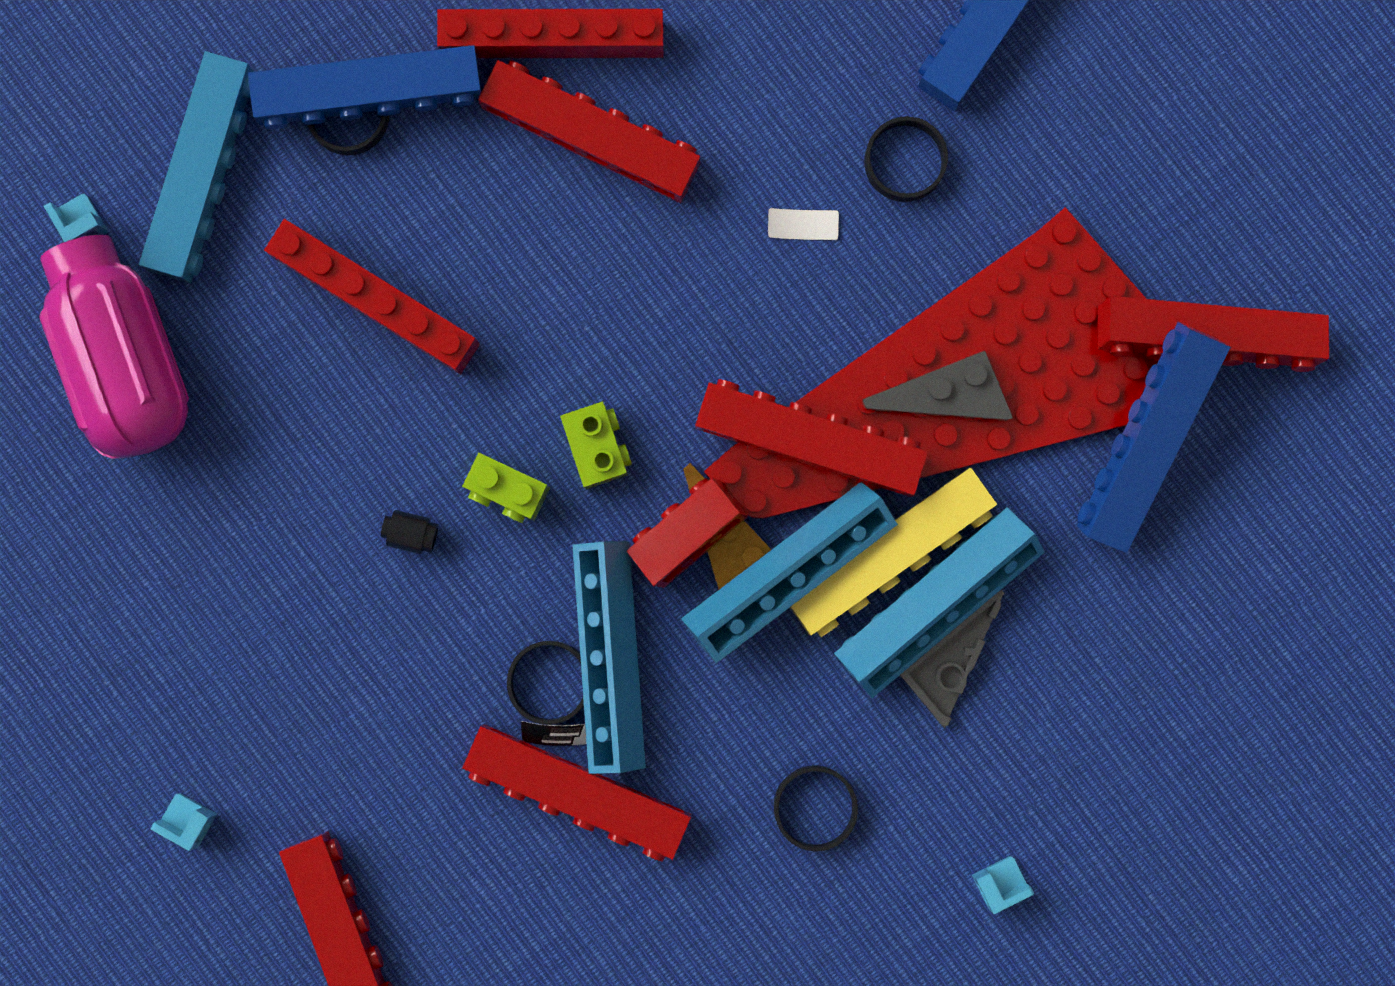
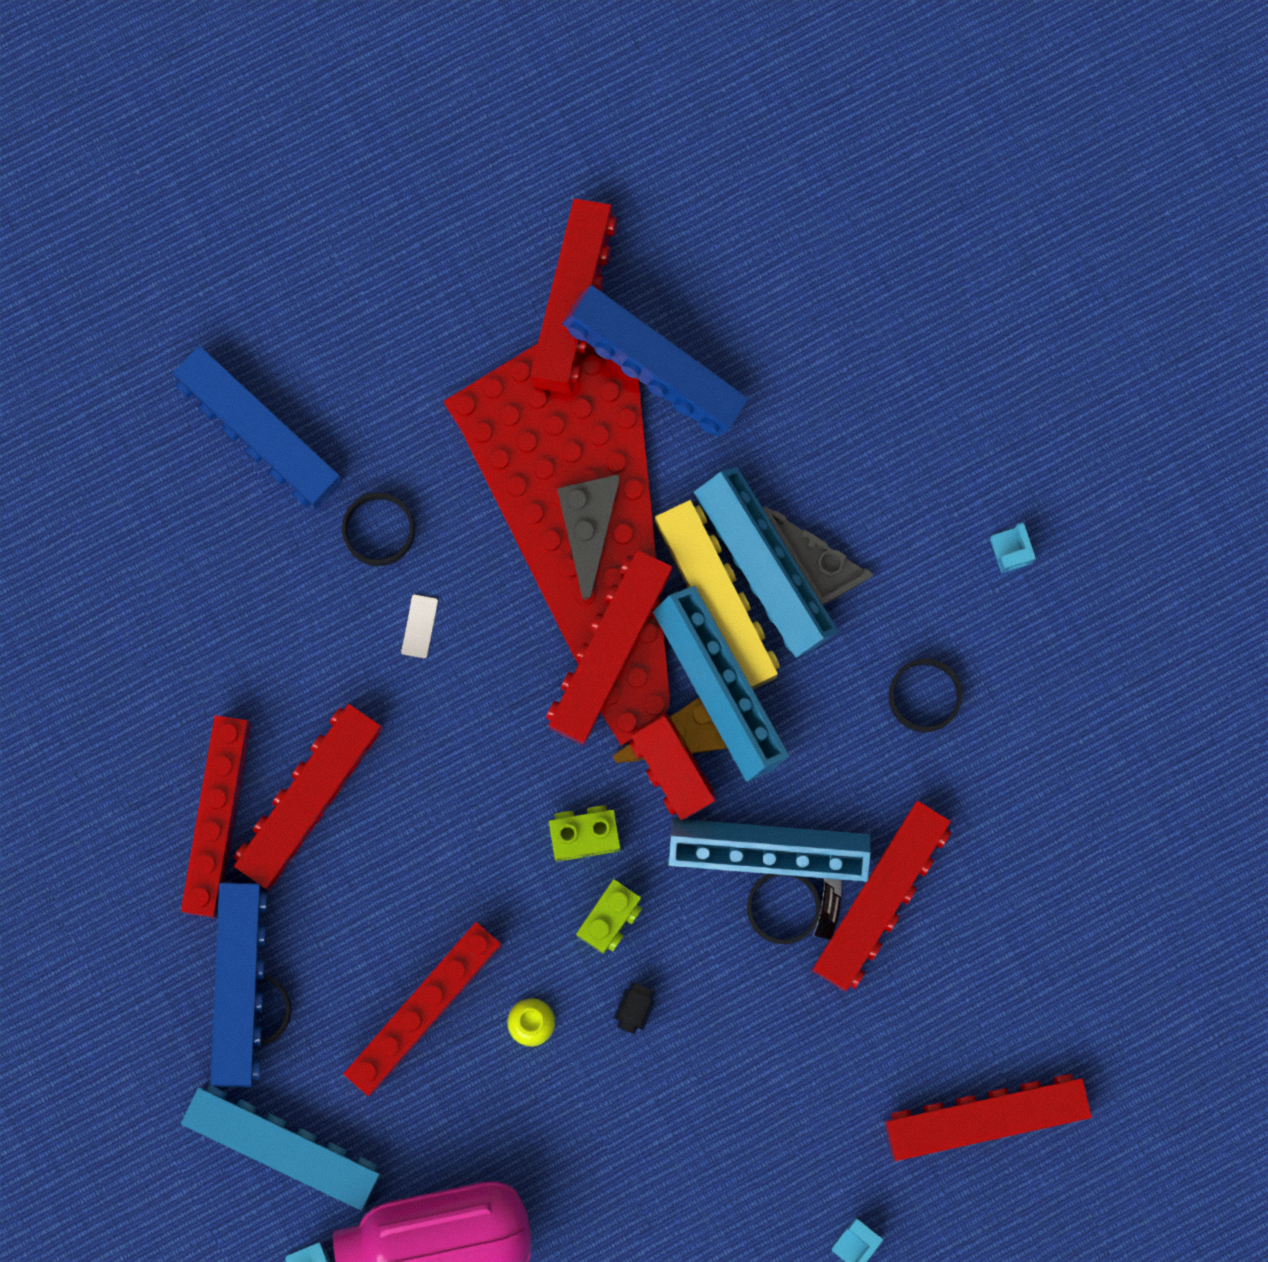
camera: 80 degrees left, 5 degrees down
(380, 420) = (531, 1022): none -> neon yellow piece

